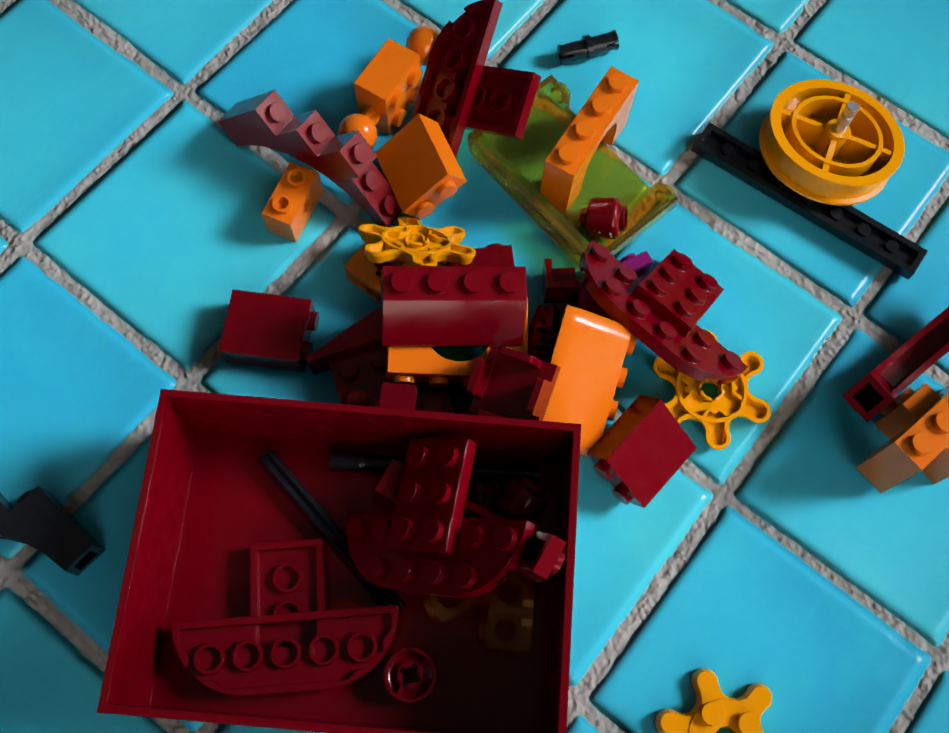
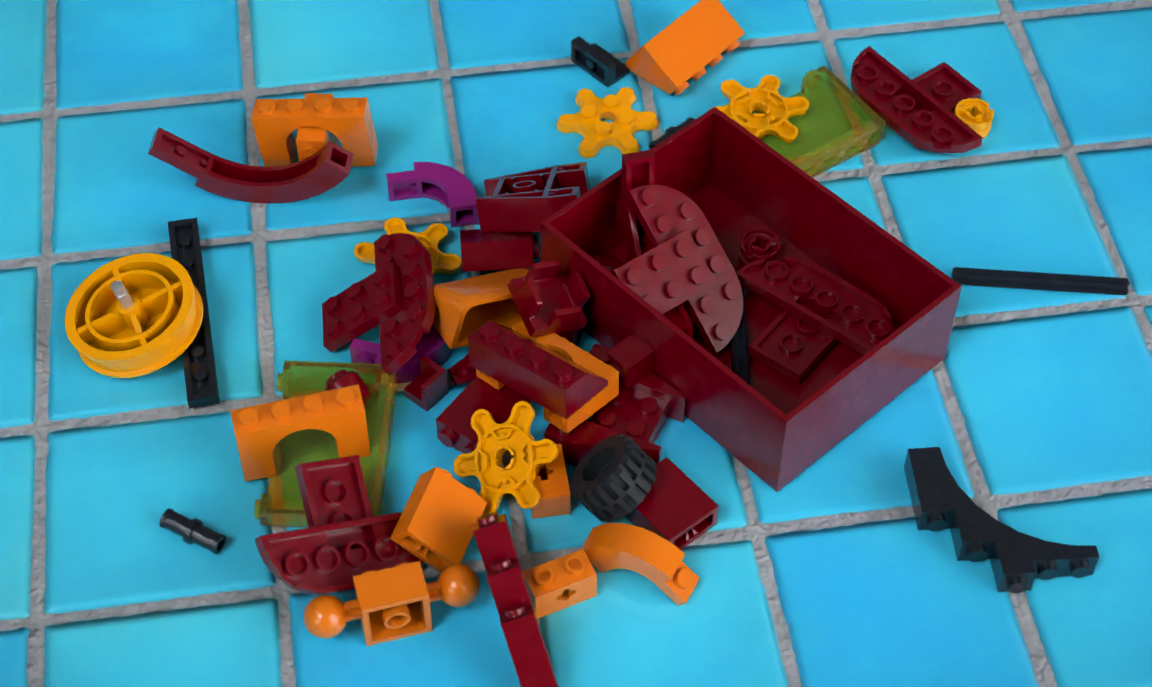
camera: 135 degrees left, 20 degrees down
(247, 255) = (643, 552): none -> orange arch
(318, 298) = (613, 478): none -> black tyre
(672, 526) = (529, 197): none -> dark red wedge
(756, 497) = (440, 184): none -> magenta arch

